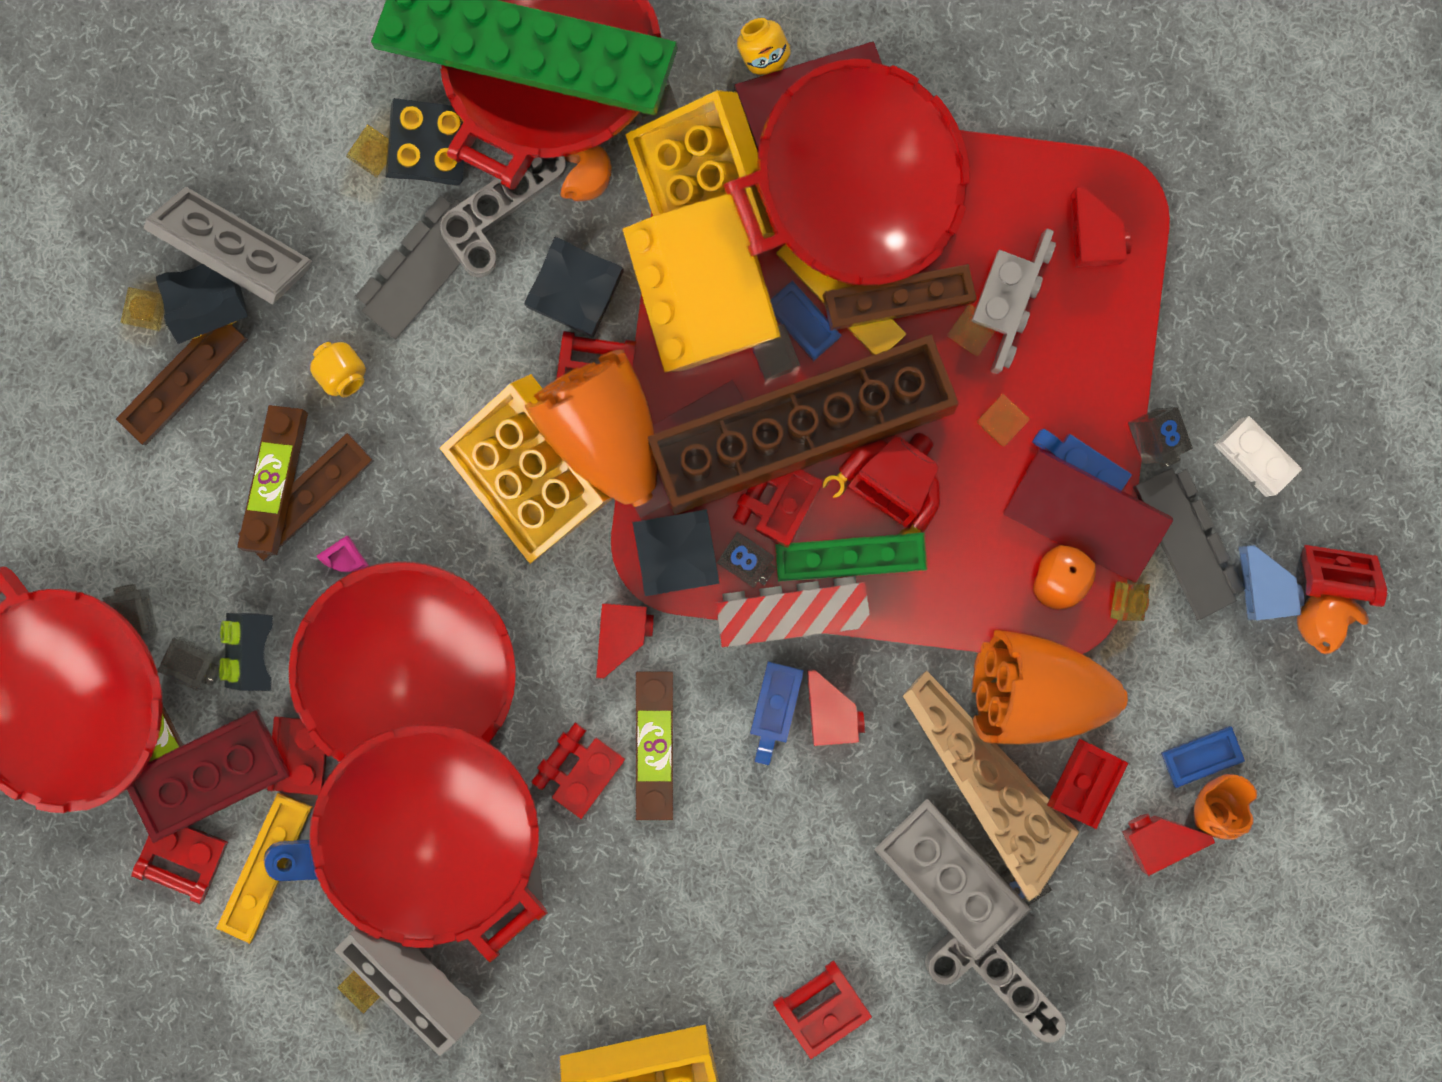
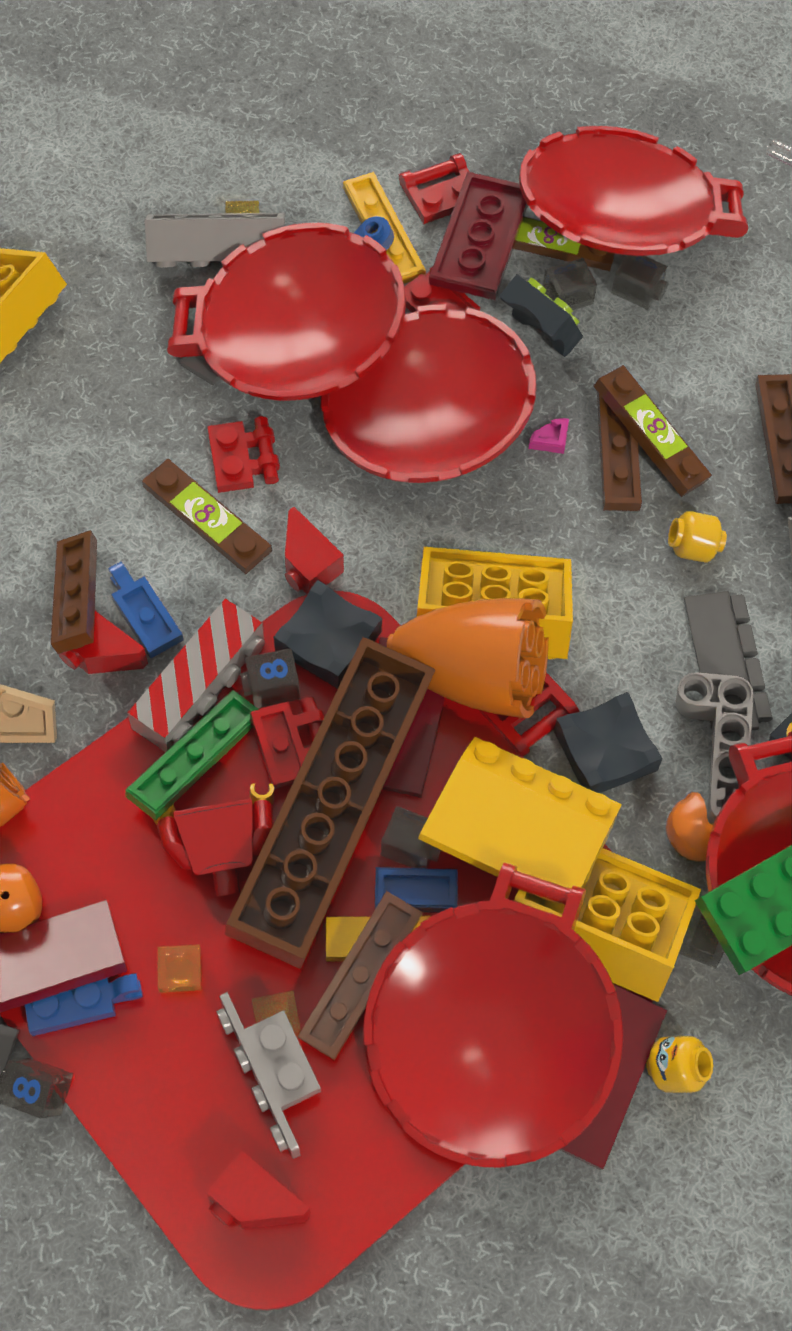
camera: 130 degrees right, 25 degrees down
(812, 765) = (74, 592): none -> reddish brown plate

